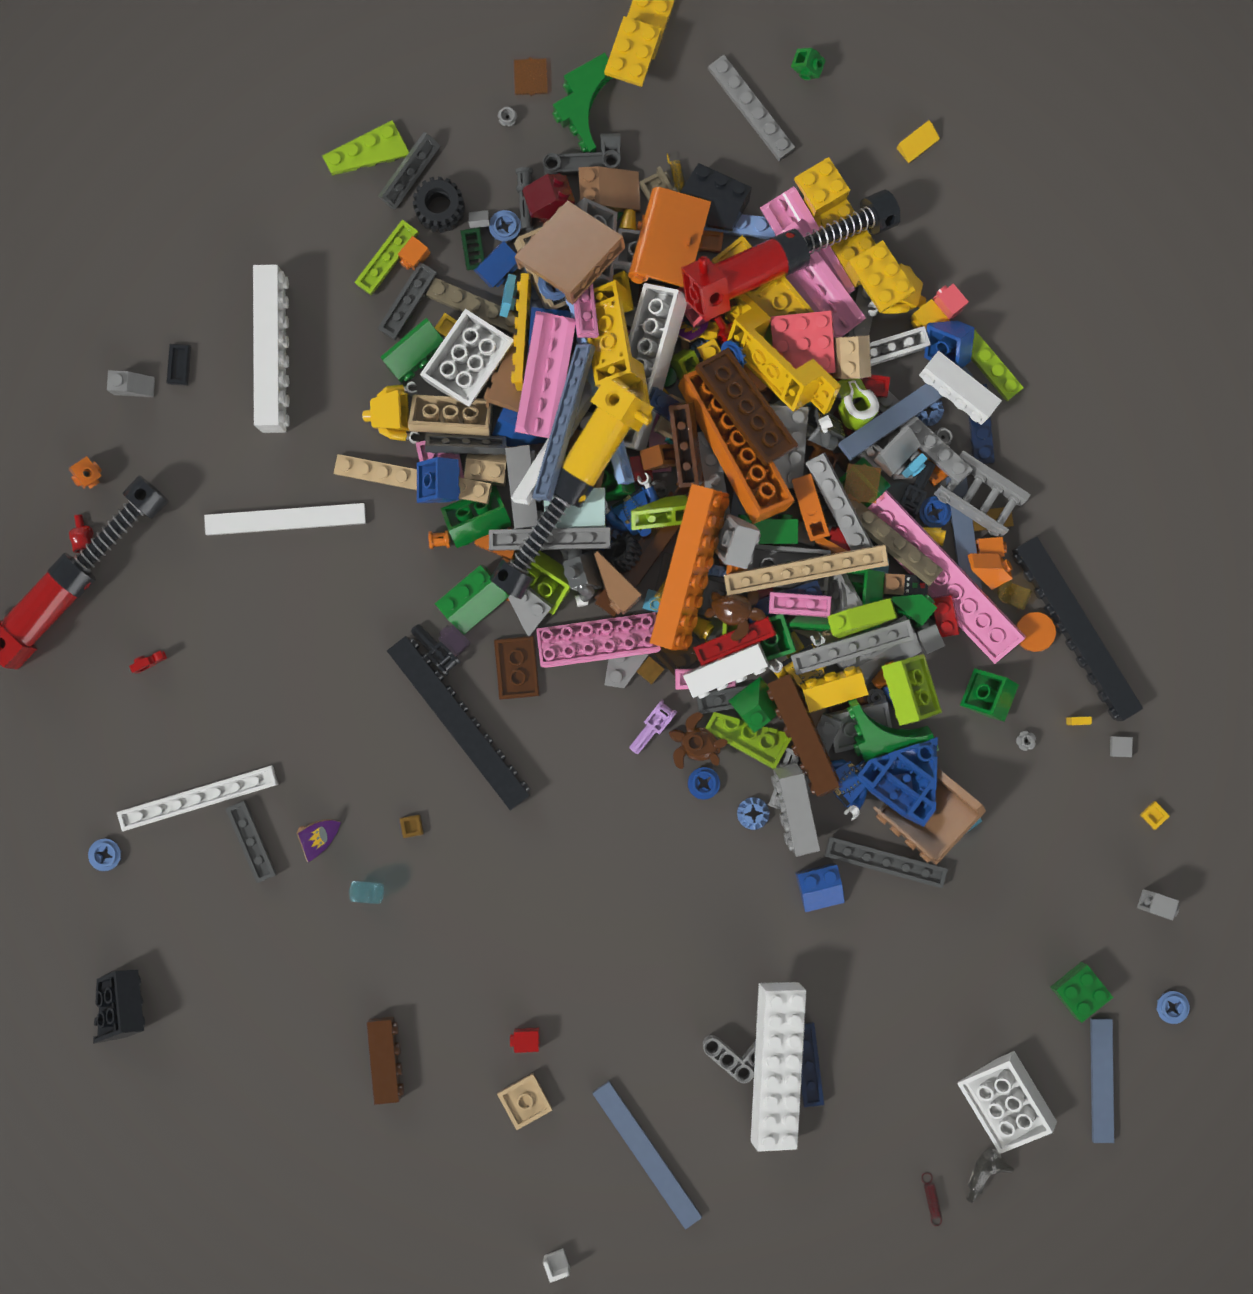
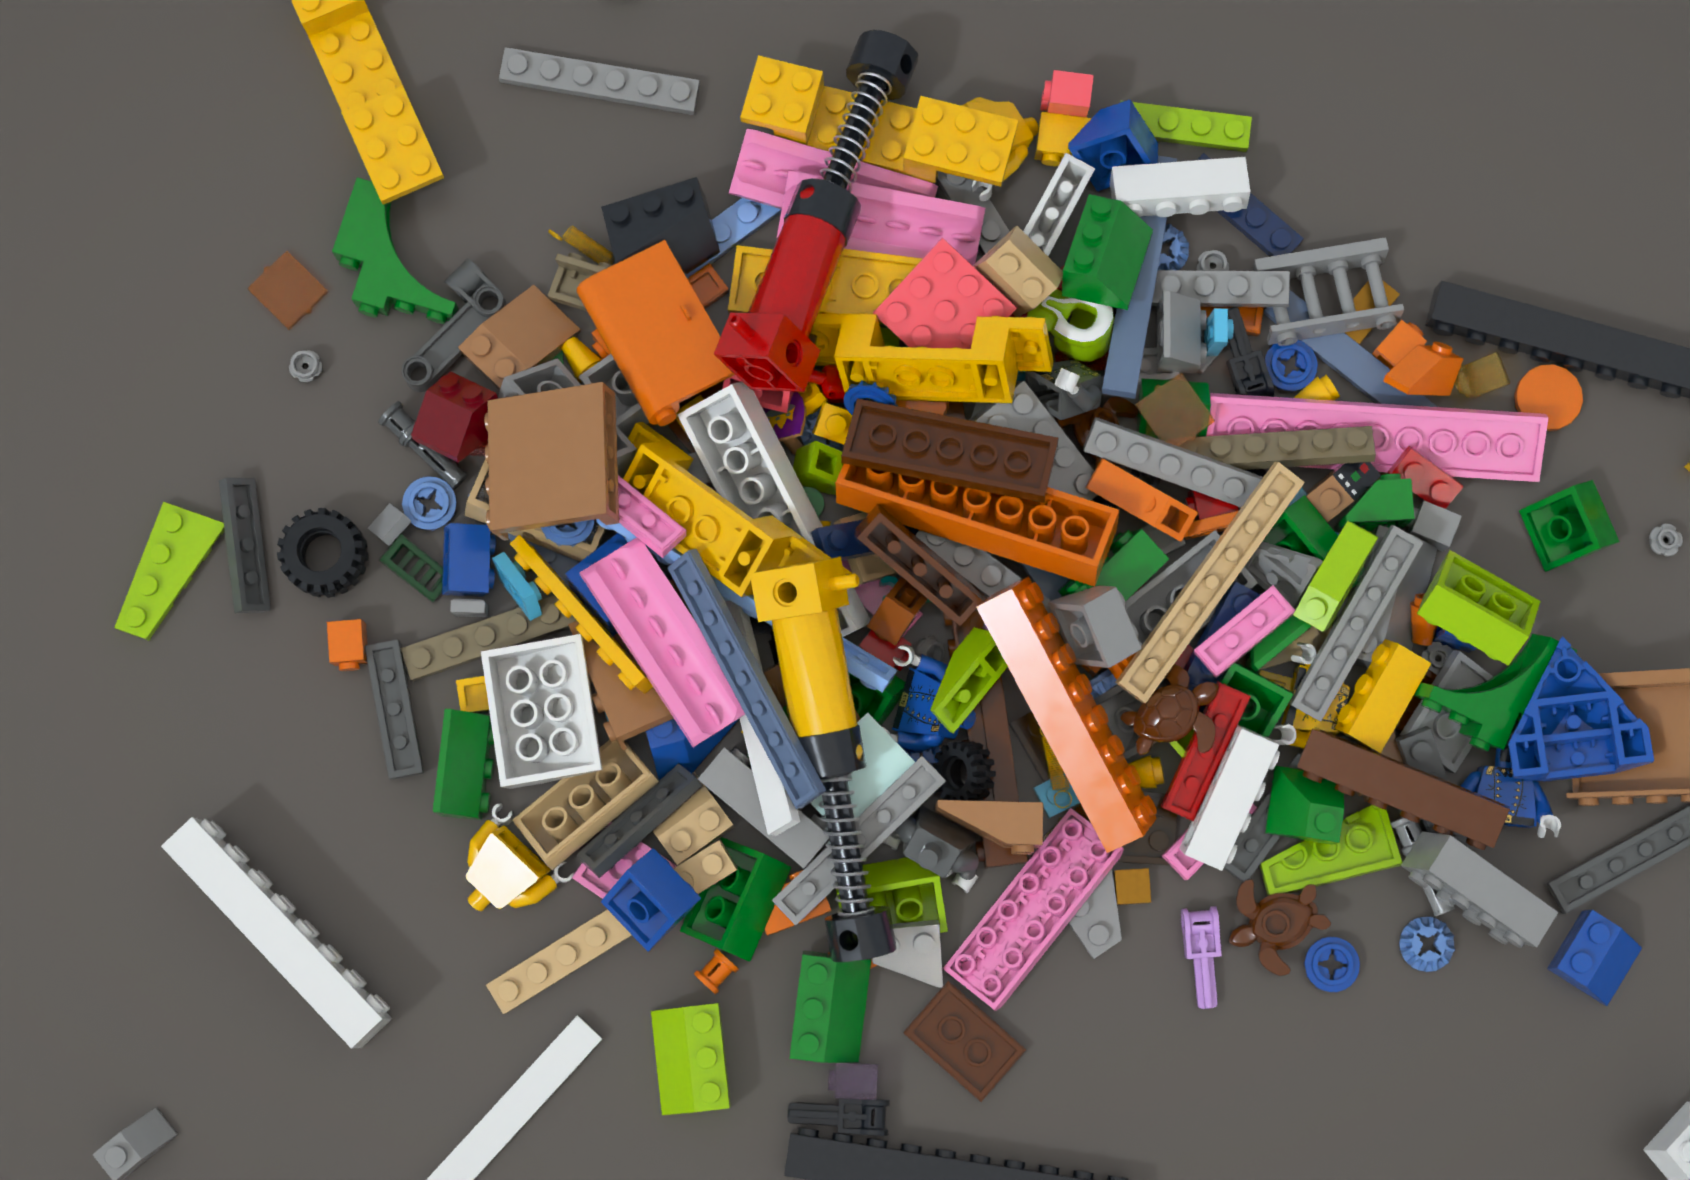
camera: 45 degrees left, 5 degrees down
(178, 364) = (173, 1062): black tile -> none
(385, 258) = (316, 680): lime plate -> none
(394, 566) = (690, 1059): none -> lime slope
(479, 286) = (469, 608): none -> light grey tile
(898, 385) = (1106, 254): none -> green slope

